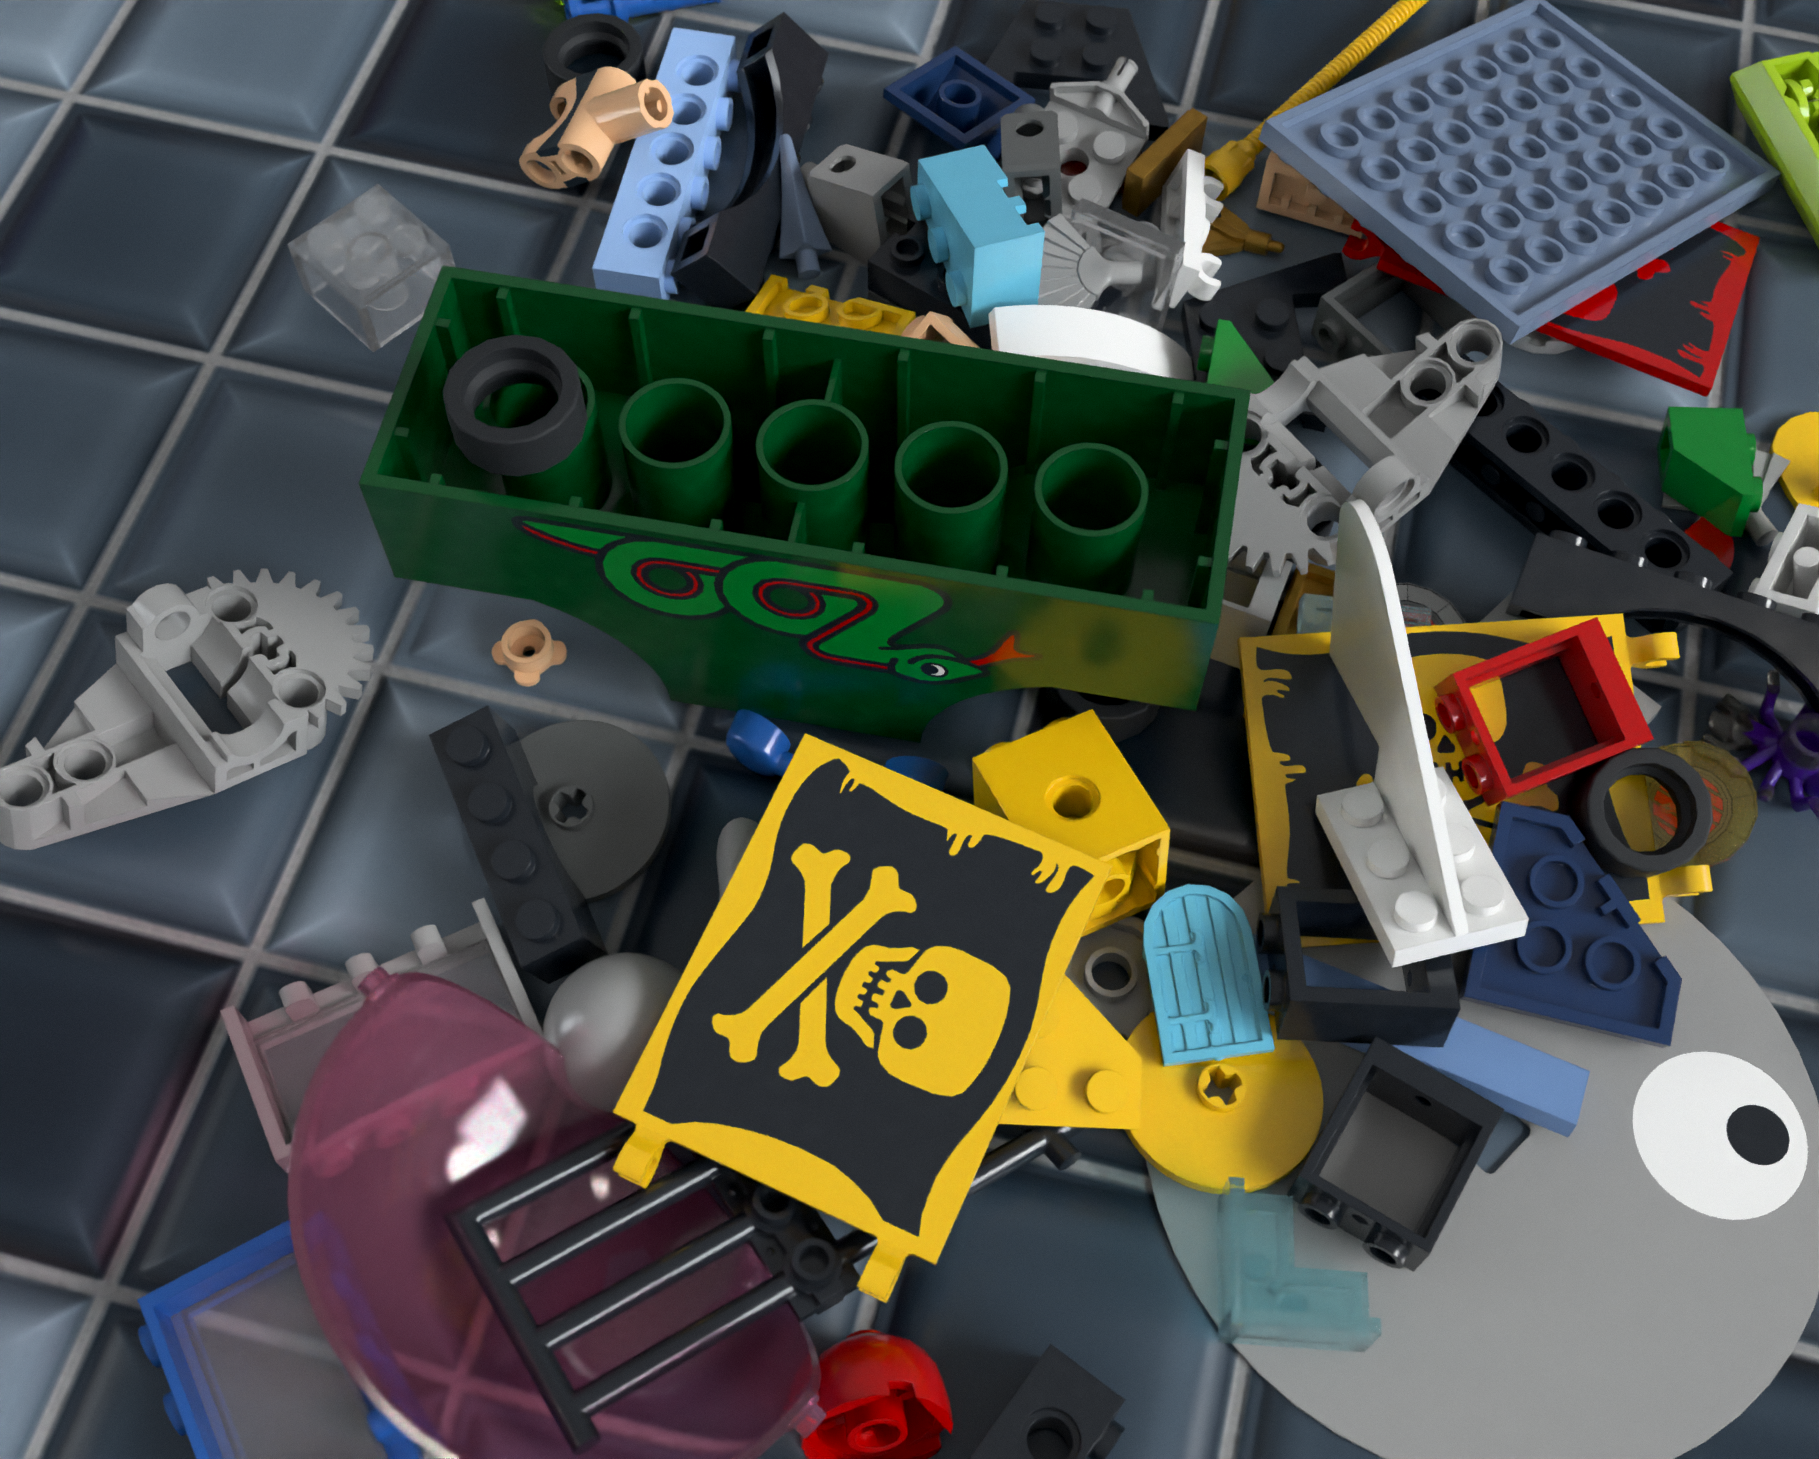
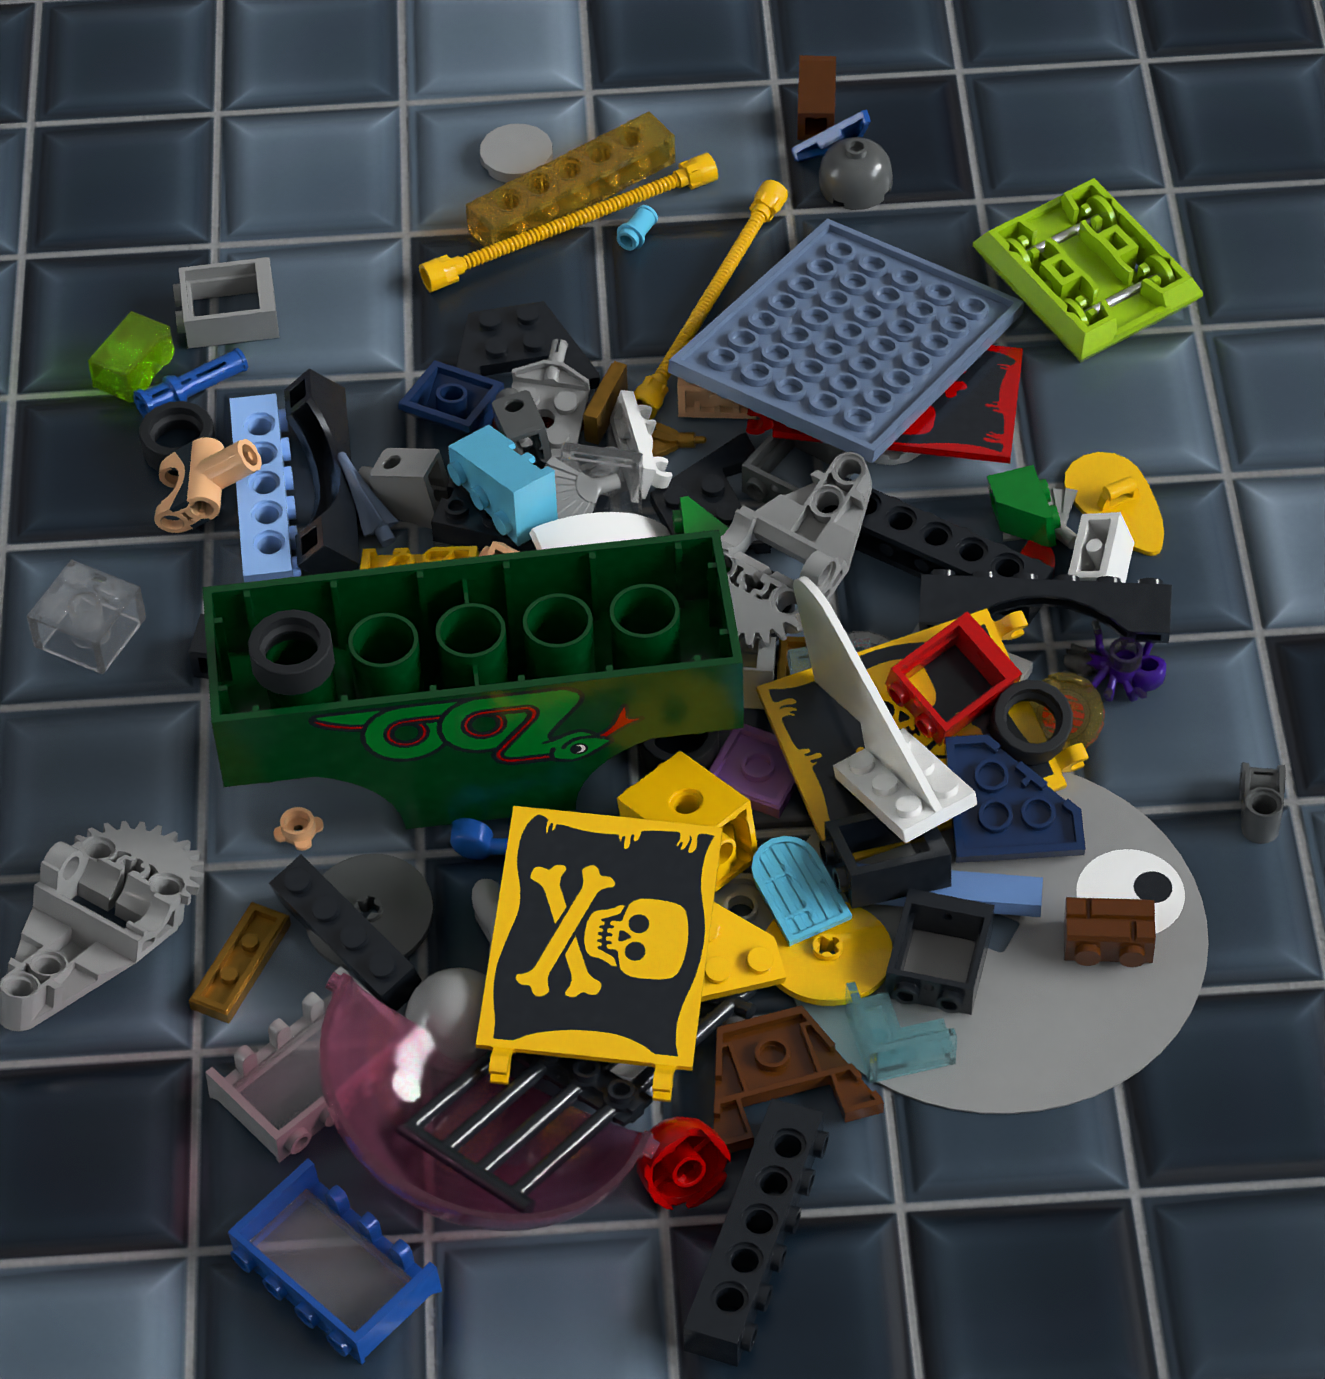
camera: 15 degrees left, 10 degrees down
(365, 834) = (240, 962): none -> pearl gold tile
(1081, 1257) = (776, 1059): none -> reddish brown wing
(1196, 759) = (756, 769): none -> medium lavender tile
(1676, 1204) = (1109, 931): none -> reddish brown brick

